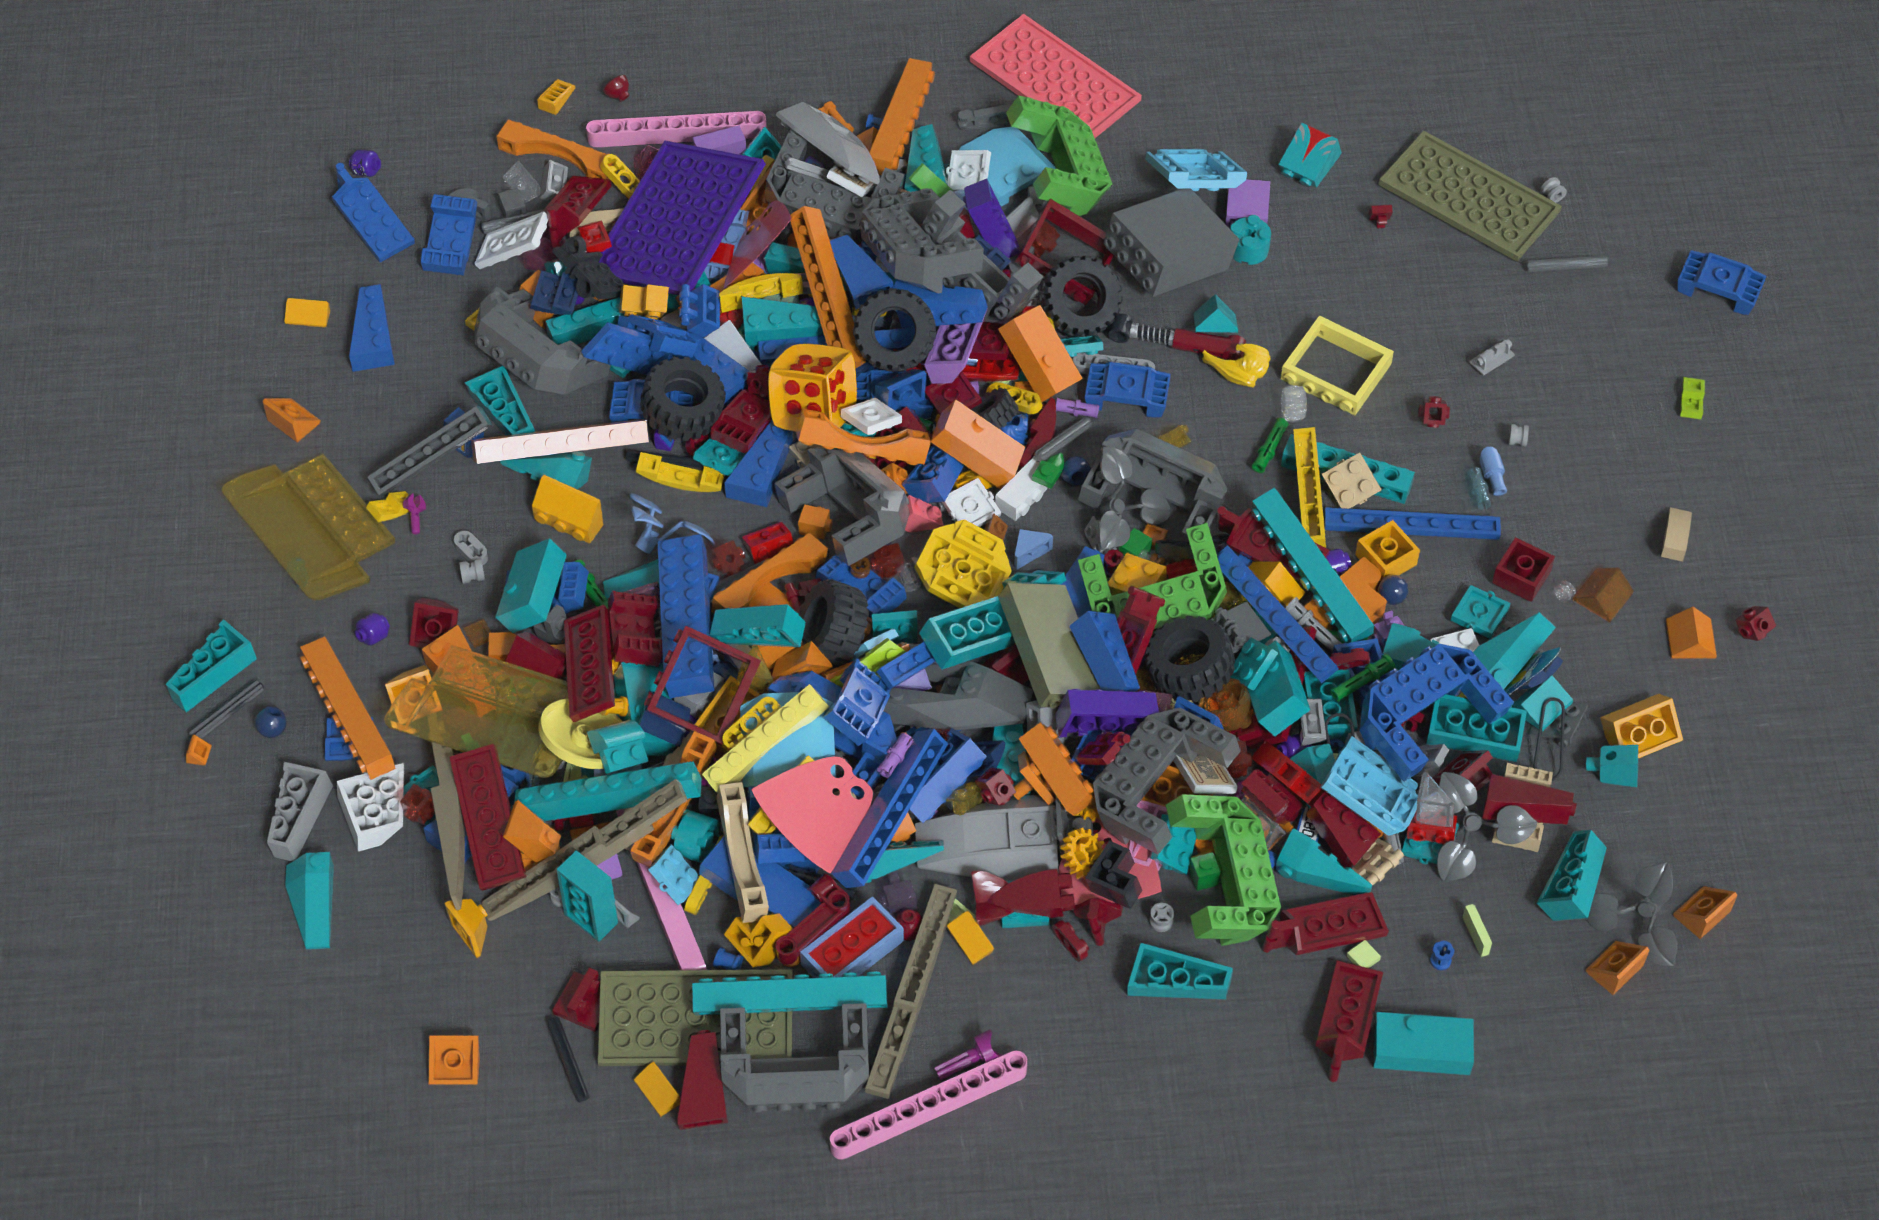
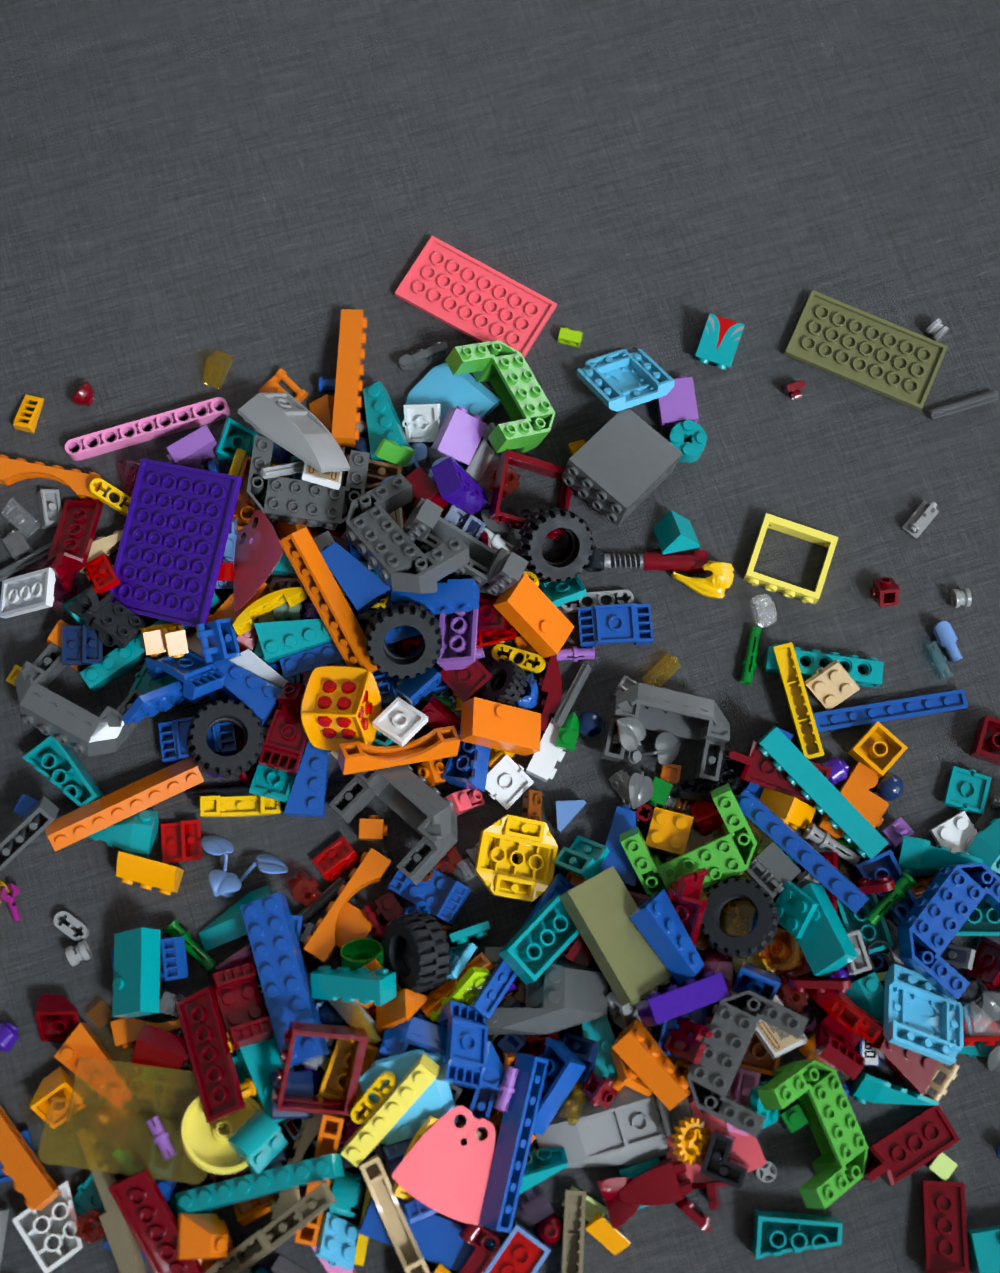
camera: 15 degrees left, 20 degrees up
(517, 726) = (161, 1138): none -> medium lavender pin
(612, 493) = (181, 841): none -> red slope
(763, 91) = (216, 368): none -> clear yellow slope
(1009, 181) = (459, 435): none -> brick
(1148, 129) = (570, 337): none -> lime piece
(1265, 736) = (819, 984): none -> dark red plate

